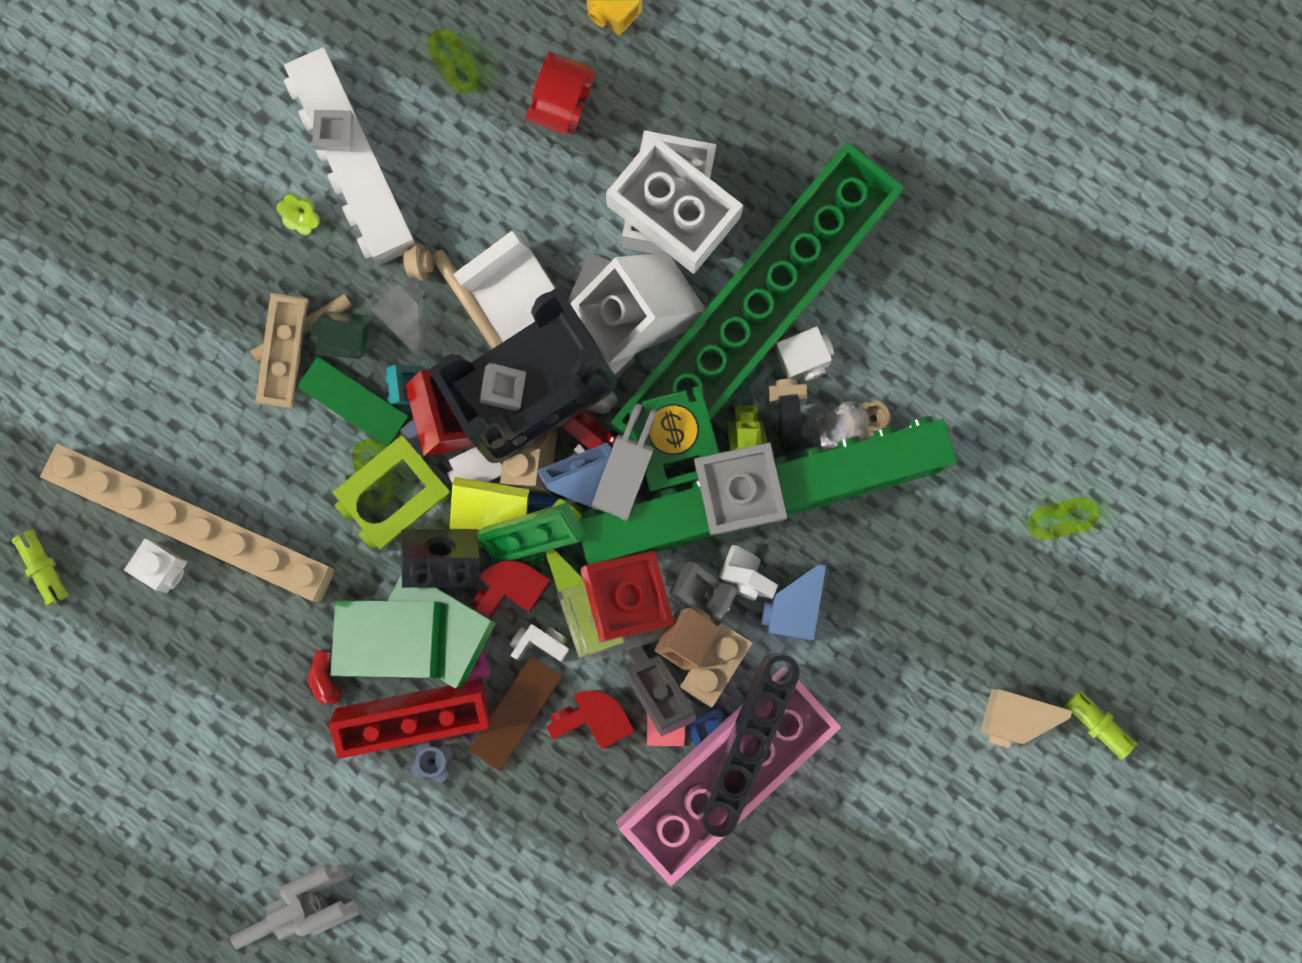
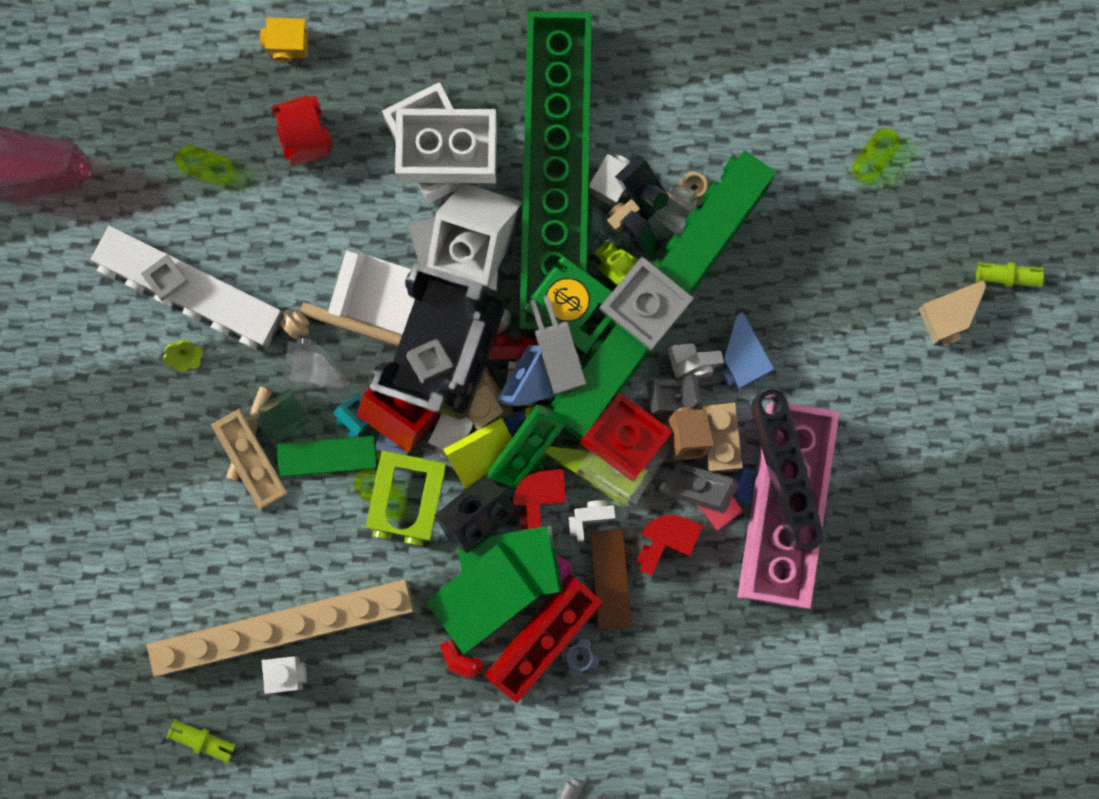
camera: 30 degrees left, 0 degrees up
(825, 381) = (642, 187): none -> black tile

